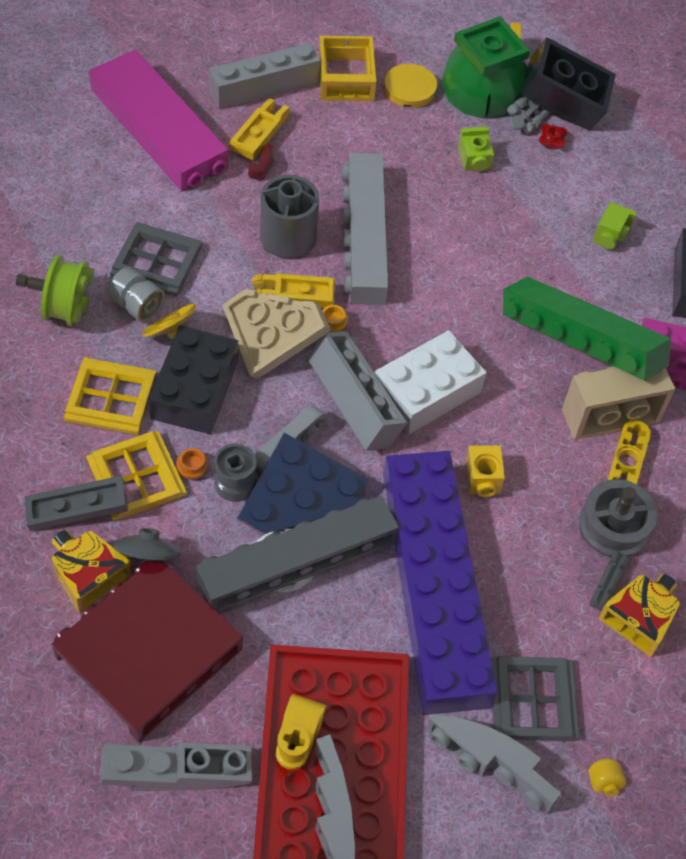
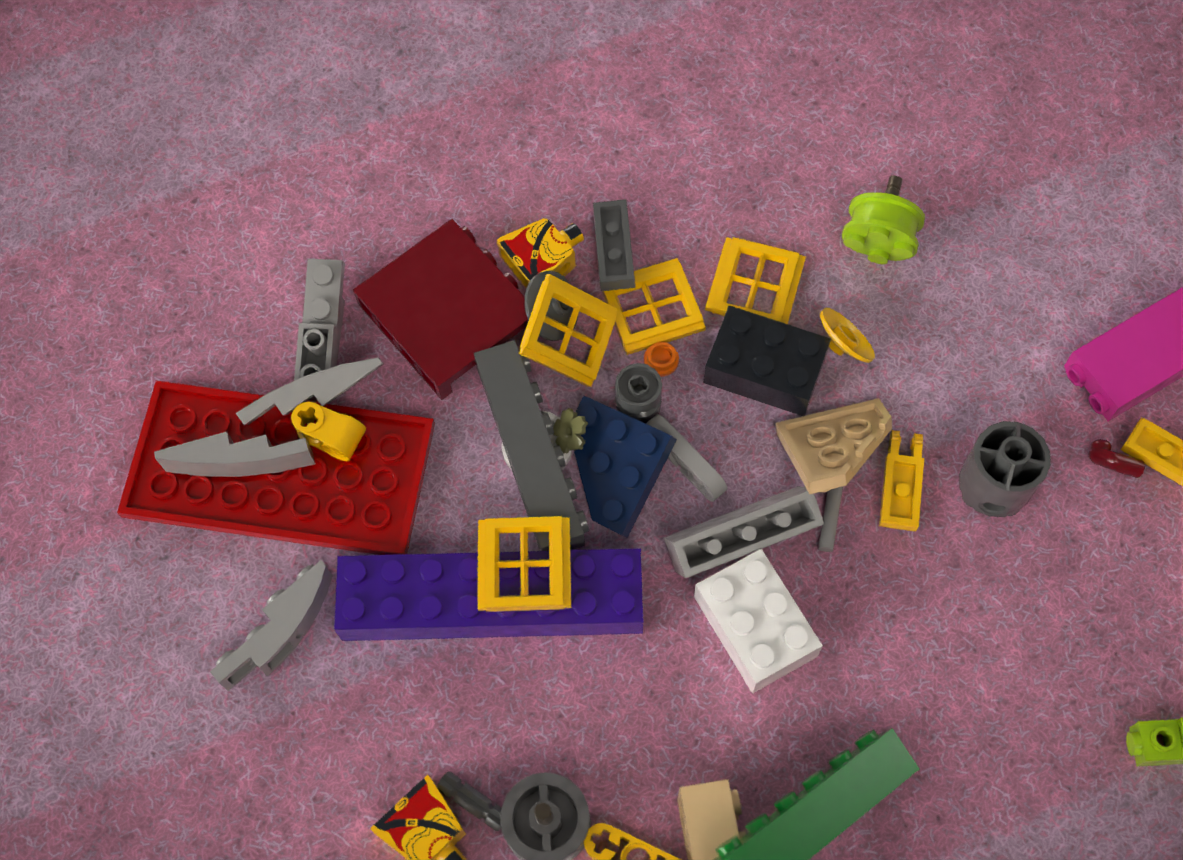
camera: 105 degrees right, 10 degrees up
(135, 294) = (889, 301): light grey wheel -> none
(165, 239) = (981, 345): dark grey piece -> none
(205, 535) = (557, 360): none -> yellow piece
(262, 760) = (324, 385): none -> light grey slope
(279, 519) = (569, 431): none -> olive plant
(336, 318) = (859, 523): light orange plate -> none
(366, 229) = (1008, 574): light grey brick -> none
(422, 562) = (558, 563): none -> yellow piece
(489, 460) = (638, 658): yellow brick -> none
(565, 698) = (339, 720): dark grey piece -> none
(607, 777) = (245, 752): yellow piece -> none

